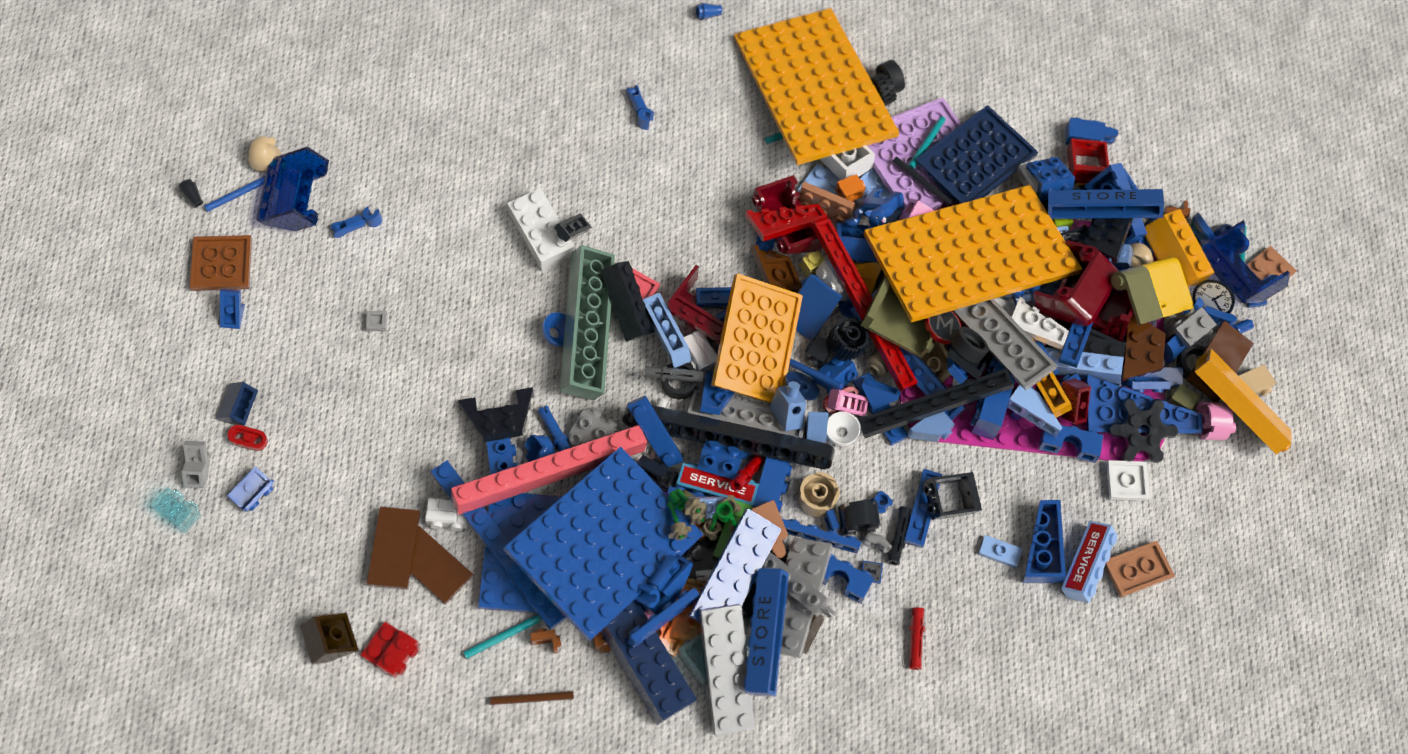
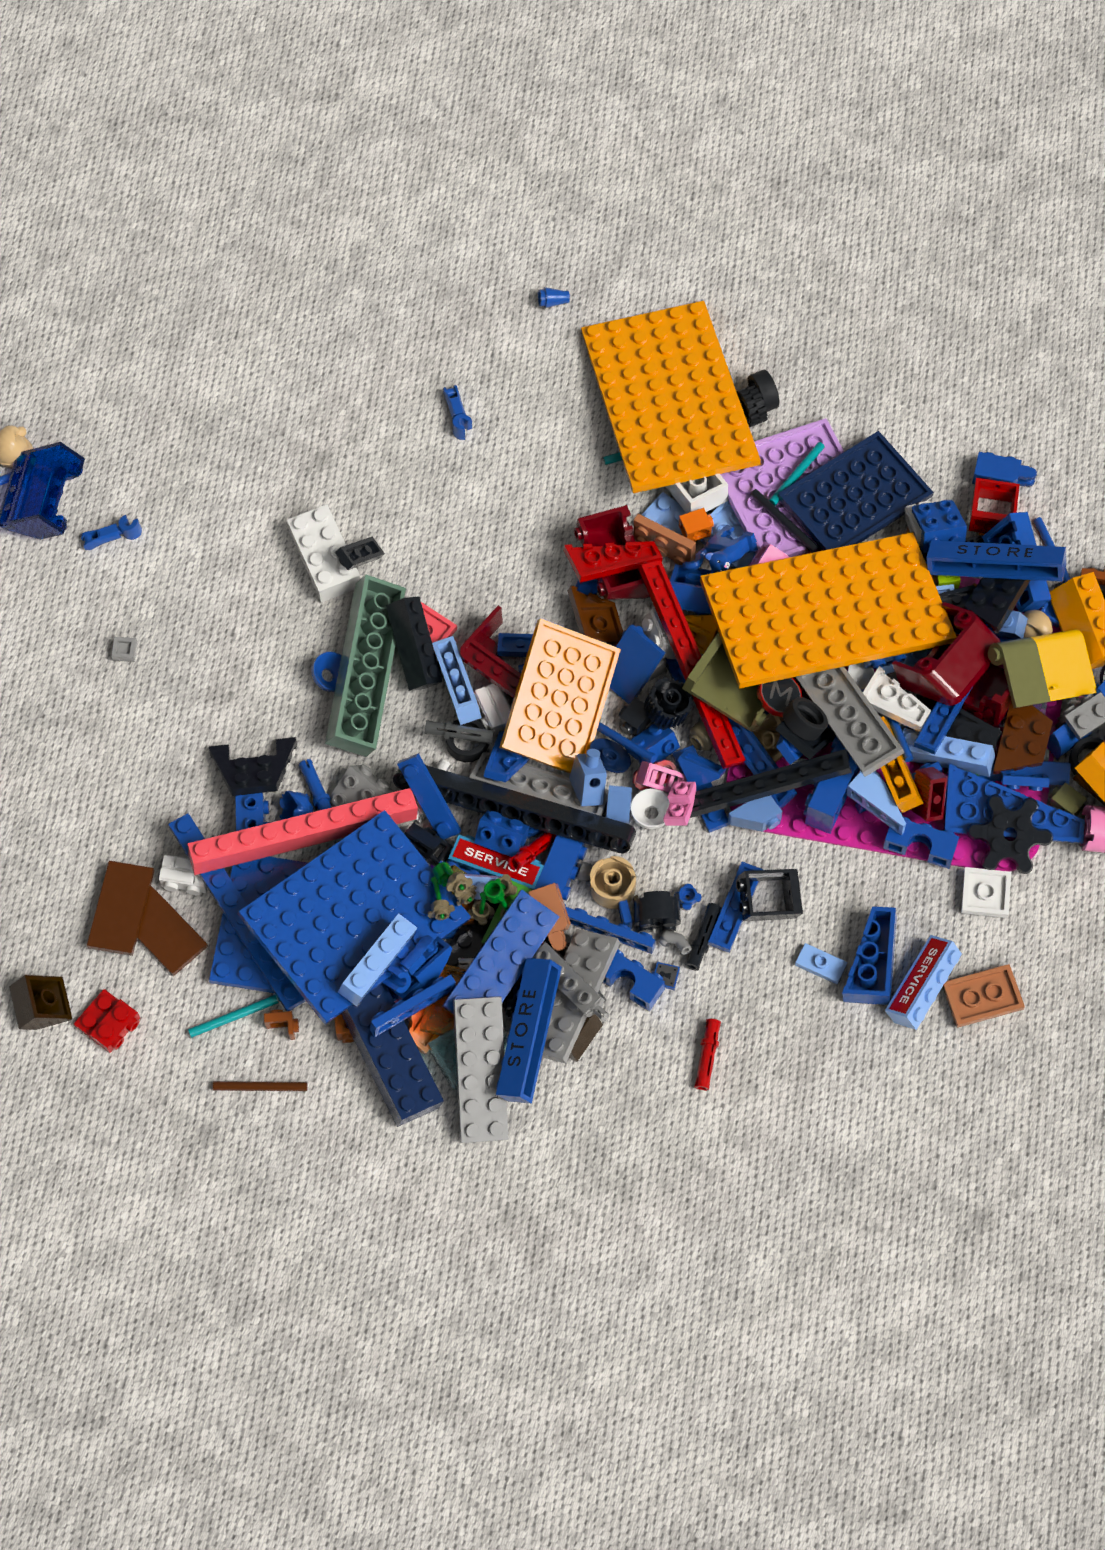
camera: 15 degrees right, 0 degrees up
(630, 580) = (377, 959): none -> light blue brick
(811, 262) = (638, 610): light yellow brick -> none
(868, 423) = (681, 803): none -> bright pink slope

